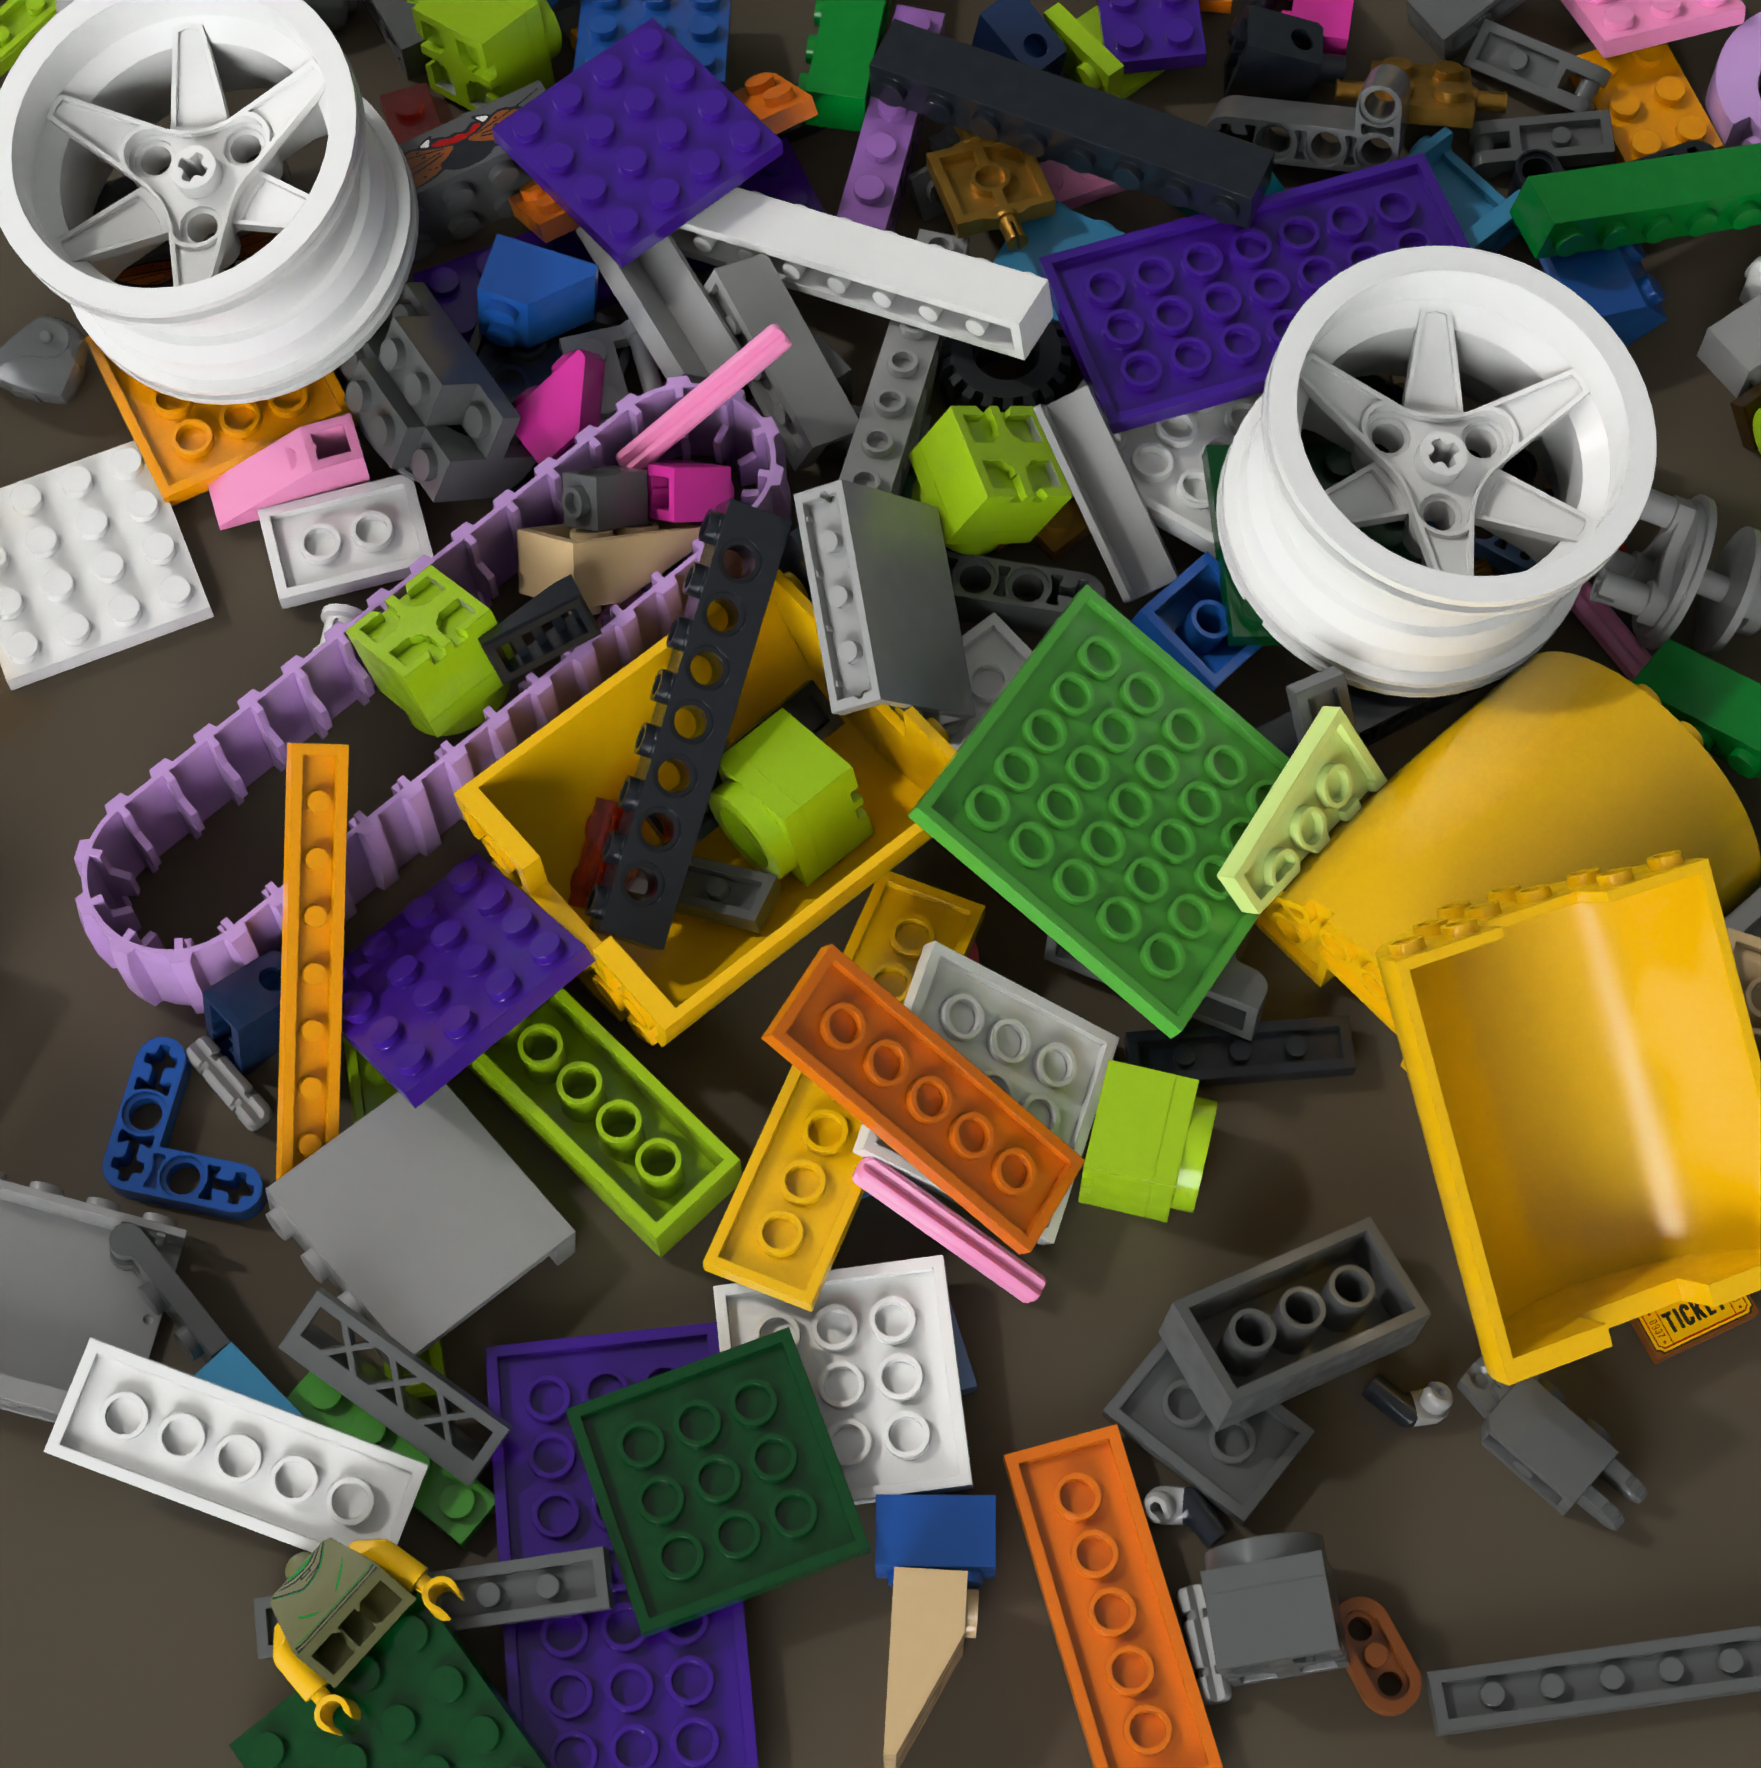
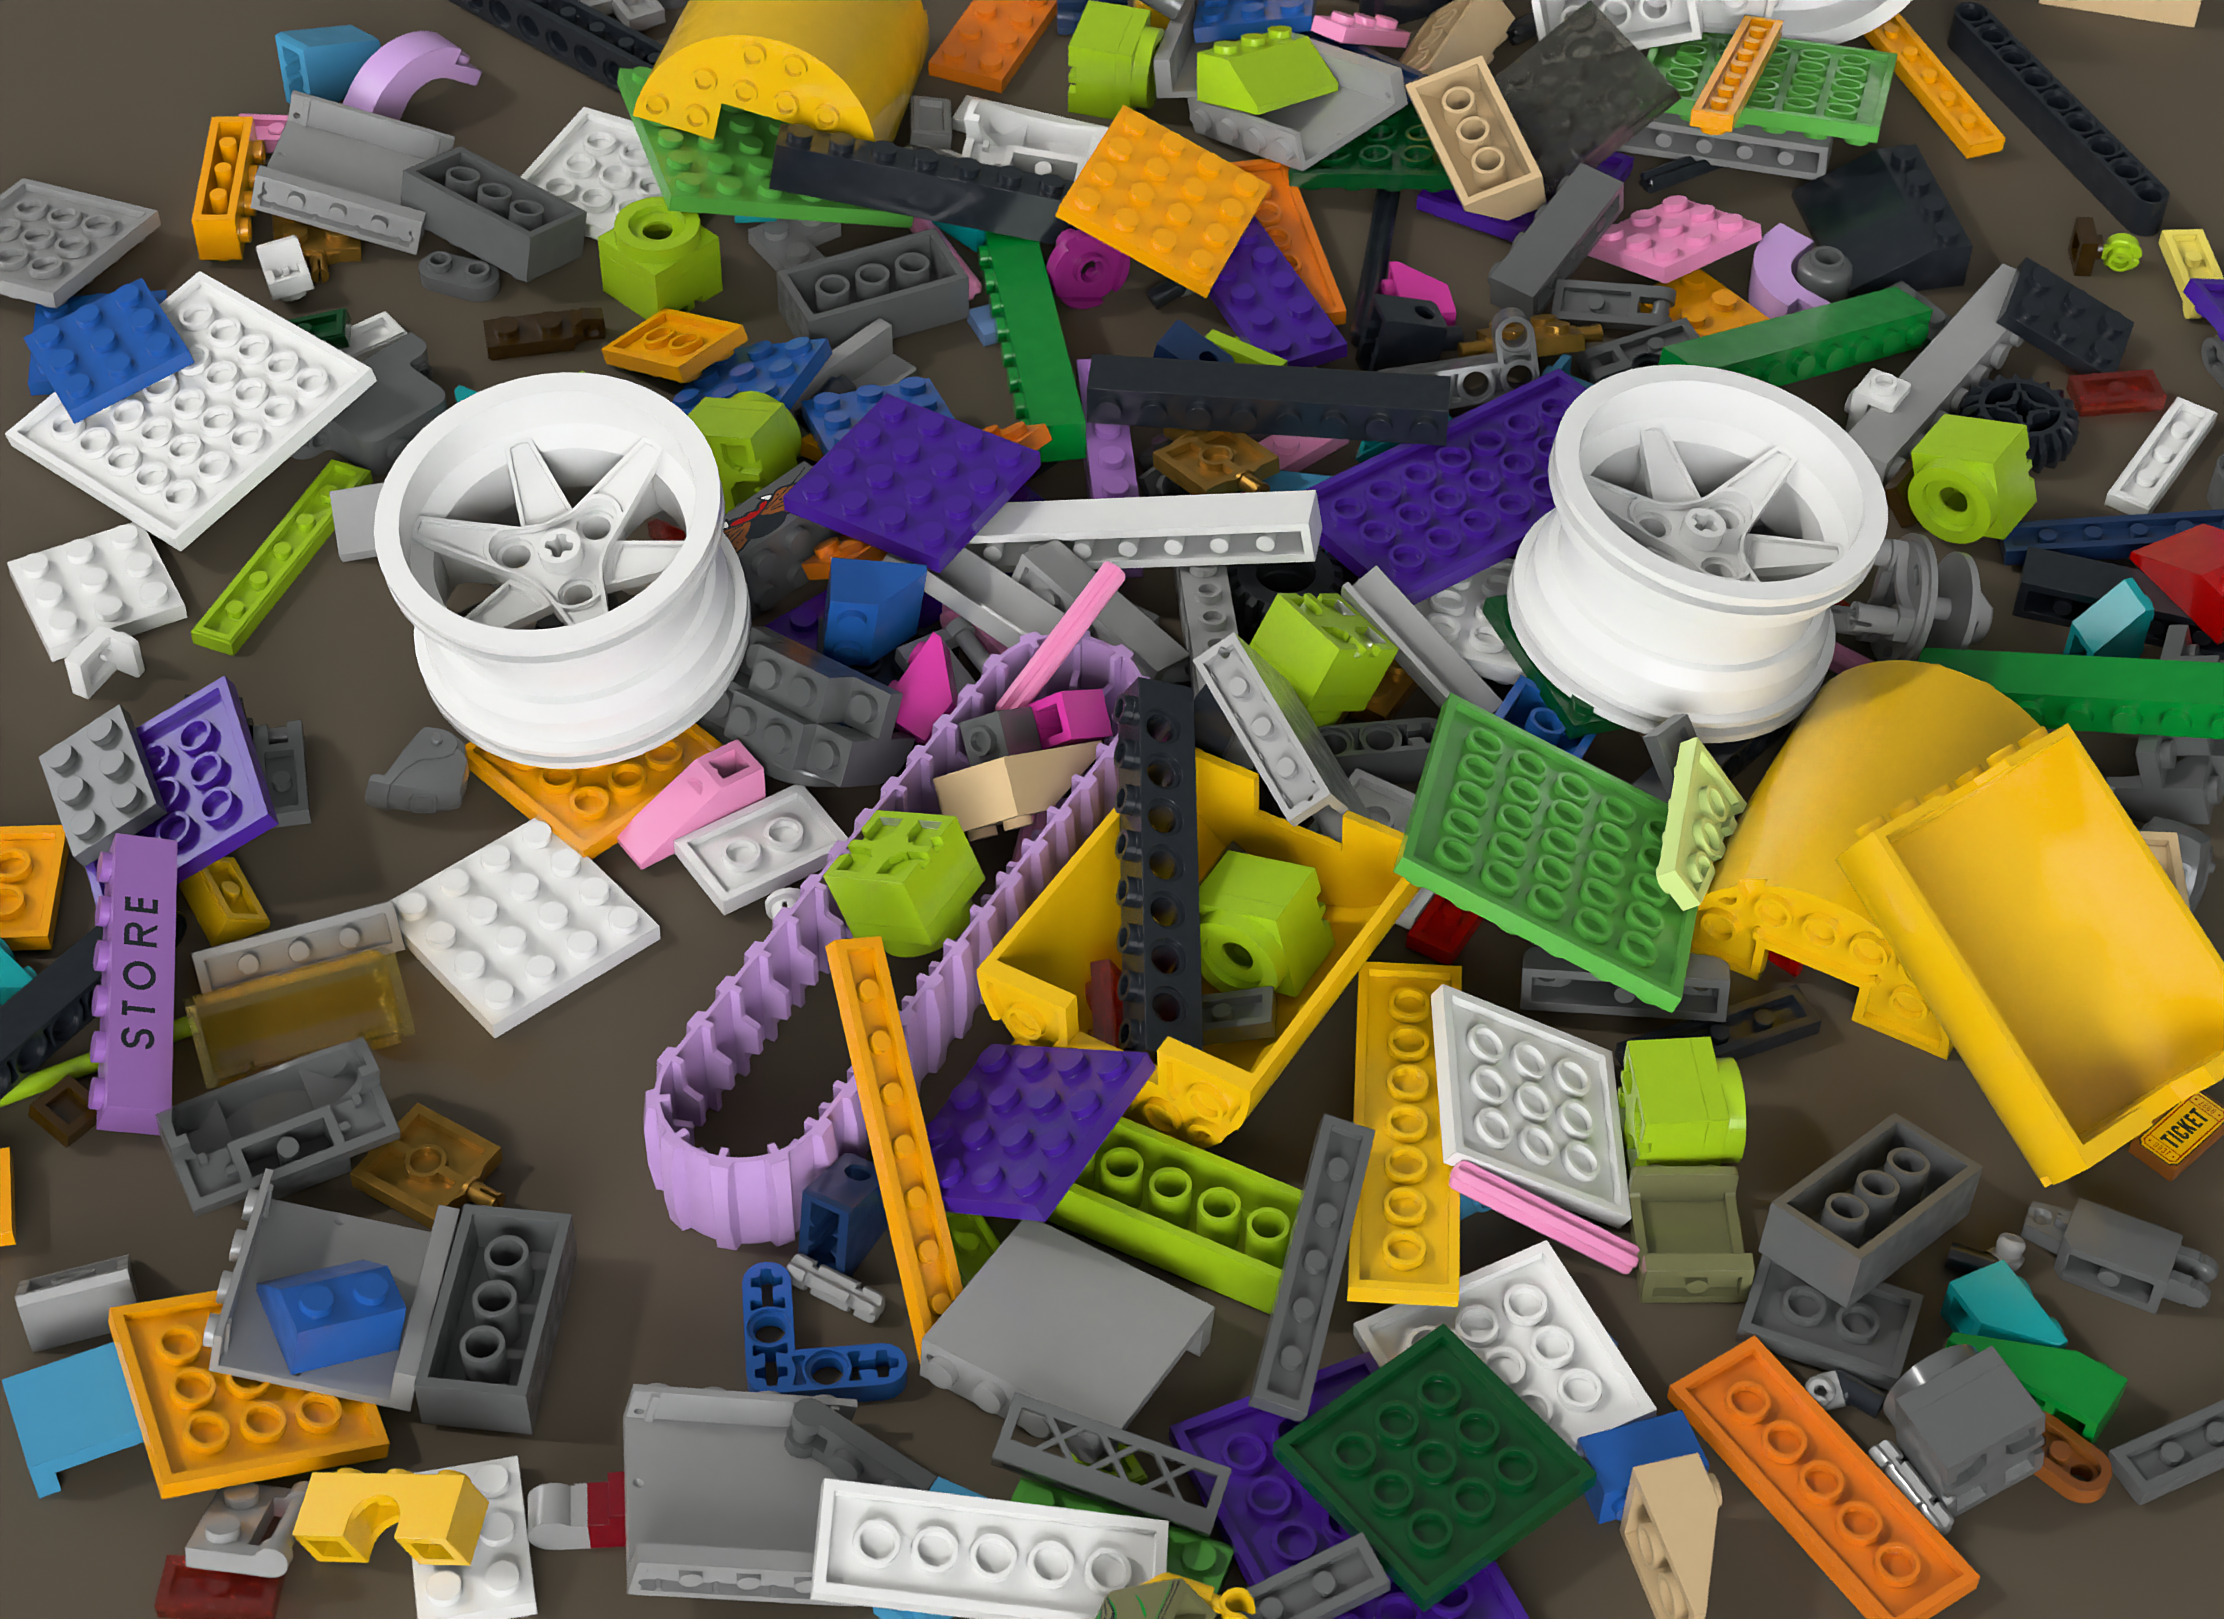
camera: 20 degrees left, 20 degrees down
(544, 607) = (1030, 824): black slope -> none
(674, 1229) = (1312, 1269): none -> dark grey plate
(924, 1099) = (1491, 1100): orange plate -> none
(1104, 1280) = (1688, 1235): none -> olive panel
(1385, 1483) = (1999, 1306): none -> teal slope
(1403, 1576) = (2060, 1381): none -> green slope

